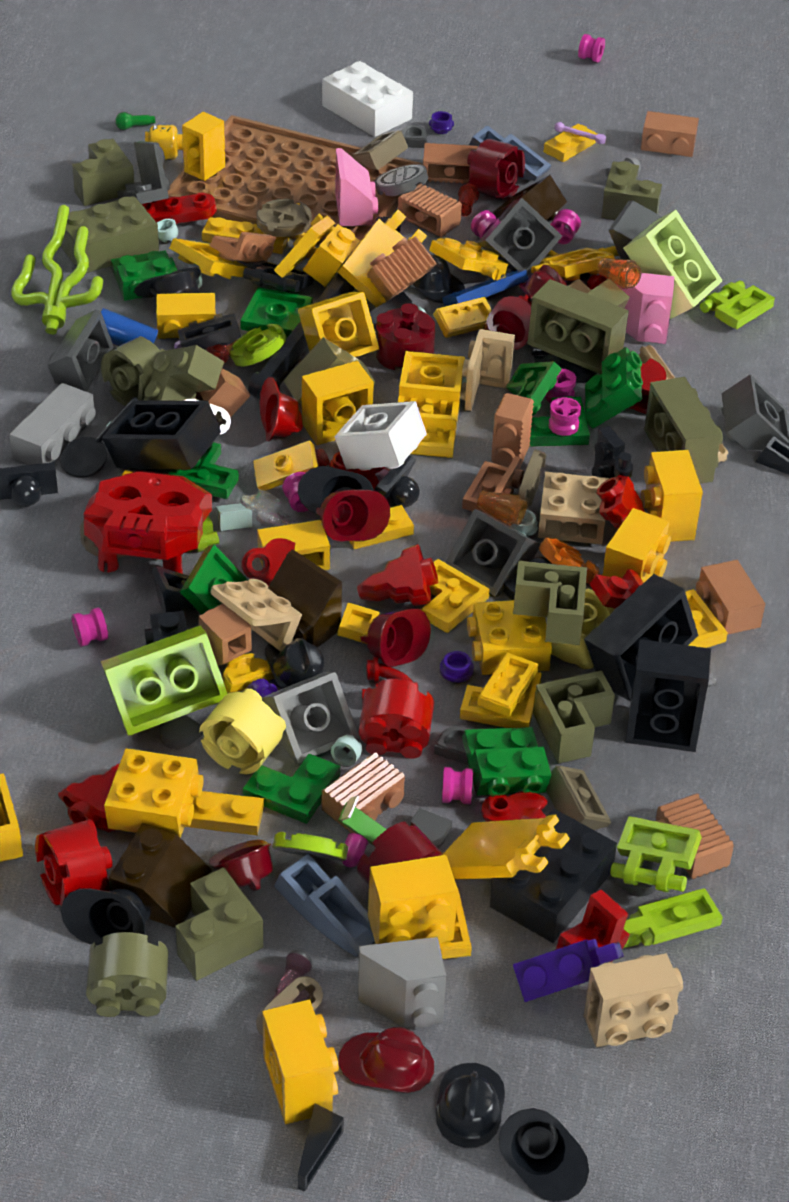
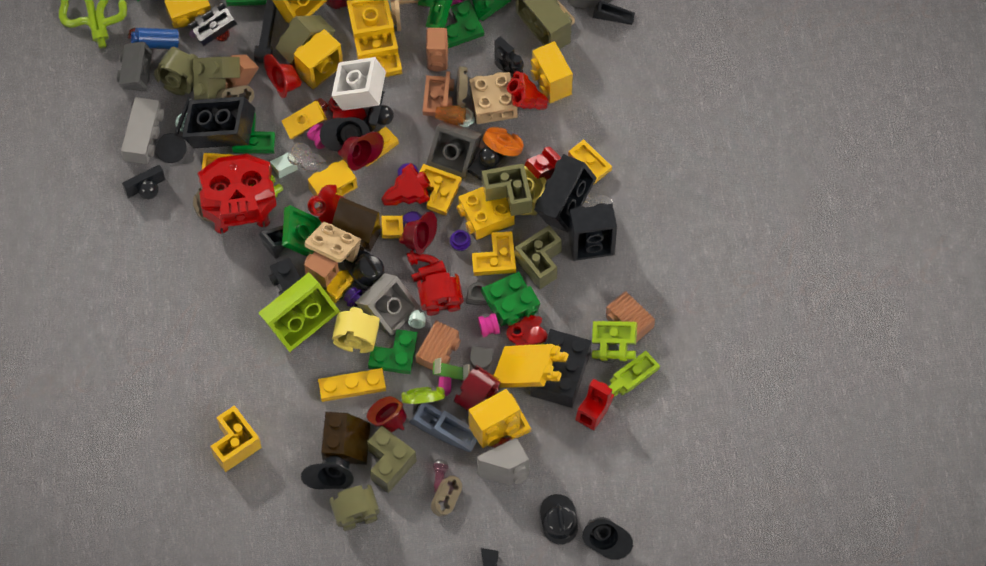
camera: 15 degrees left, 20 degrees up
(72, 860) = (296, 447): red brick -> none
(88, 798) = (290, 396): red rock -> none
(89, 627) = (233, 280): dark pink wheel -> none
(153, 792) = (324, 390): yellow brick -> none
(179, 732) = (317, 338): dark grey tile -> none
(257, 345) = (248, 19): lime tile -> none
(299, 1060) = (465, 528): yellow brick -> none
(387, 1060) = (507, 509): dark red piece -> none
(507, 684) = (496, 248): yellow plate -> none
(562, 967) = (586, 427): dark purple hinge -> none
(564, 416) = (469, 22): dark pink wheel -> none
(576, 798) = (557, 311): dark tan slope -> none
(632, 999) = (627, 436): tan brick -> none
(638, 546) = (543, 127): yellow brick -> none
(731, 596) = (606, 137): nougat brick -> none

